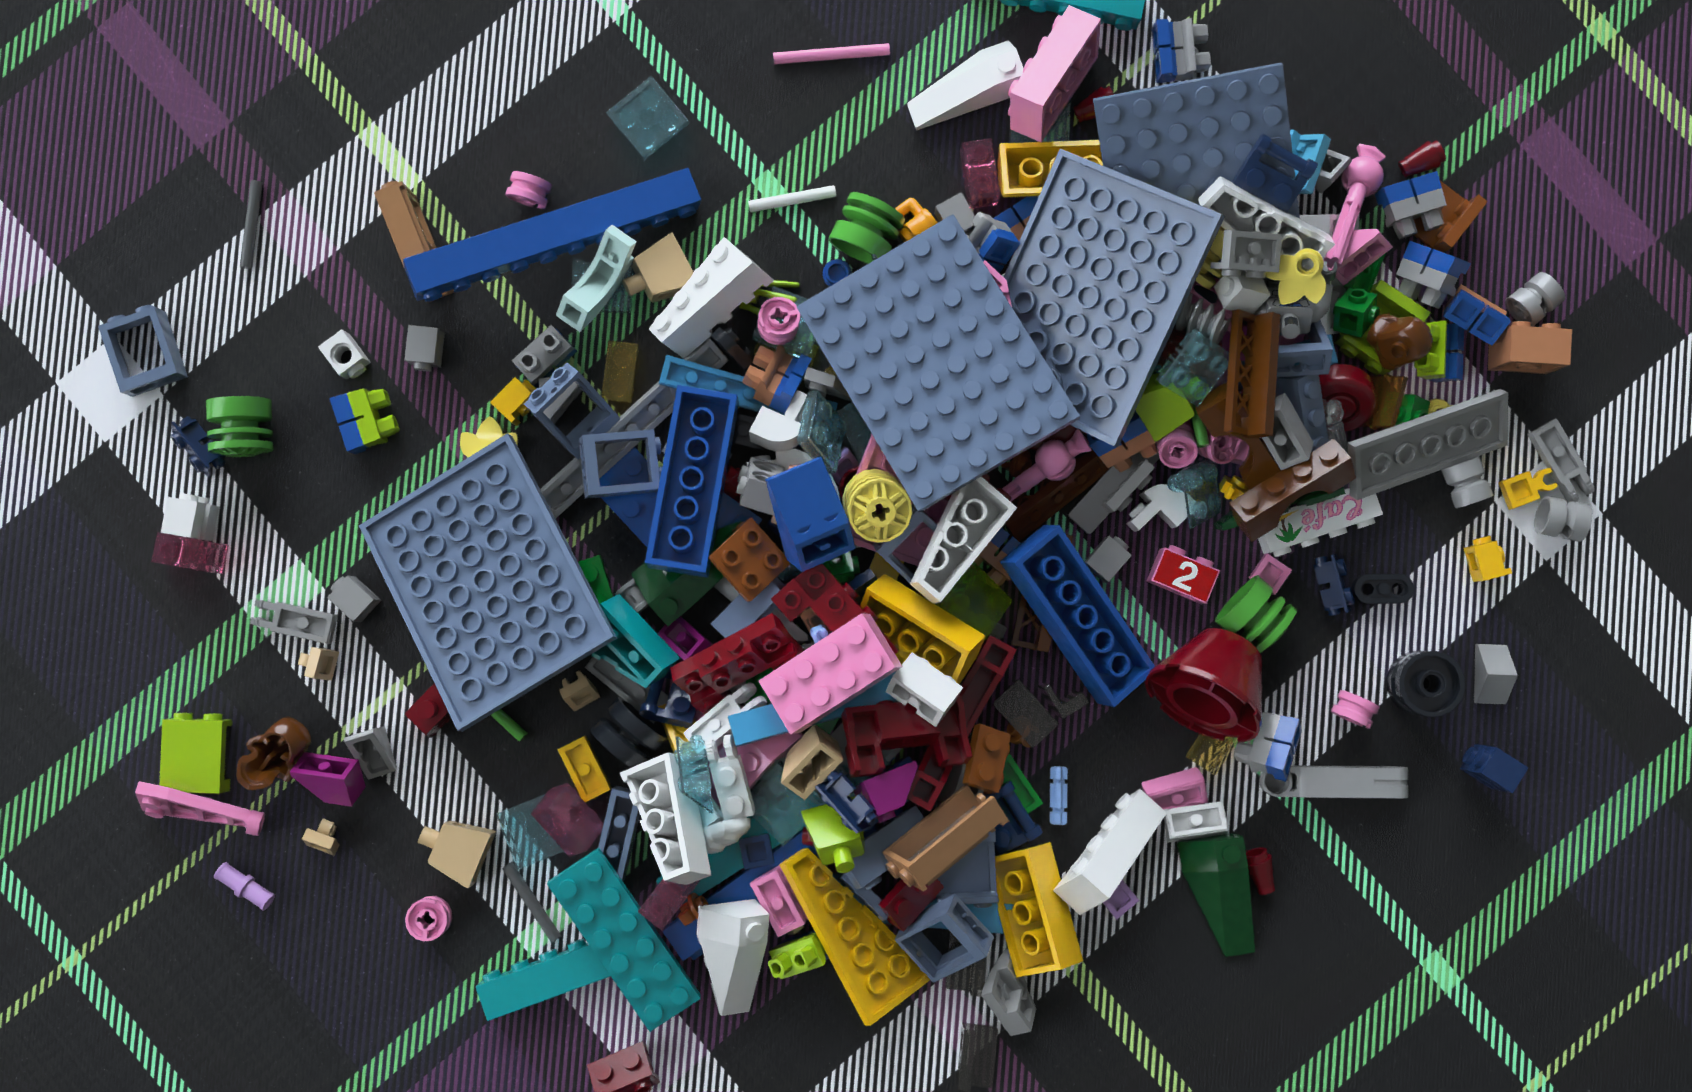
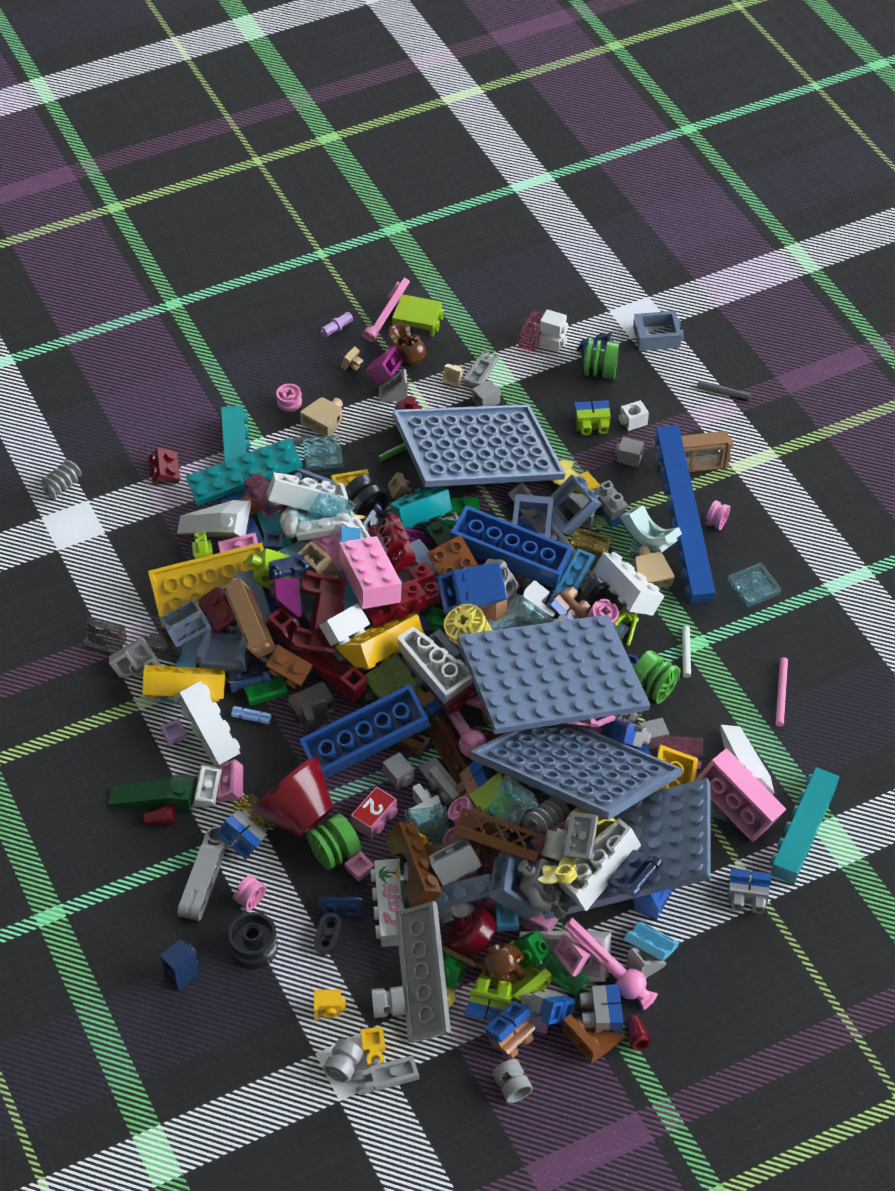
camera: 105 degrees right, 35 degrees down
(568, 819) = (329, 452): clear pink brick -> none
(921, 222) = (654, 712): light orange piece -> none
(1085, 109) = (719, 834): dark red cone -> none
(1493, 674) = (245, 991): light grey slope -> none
(1531, 349) = (475, 1061): nougat brick -> none

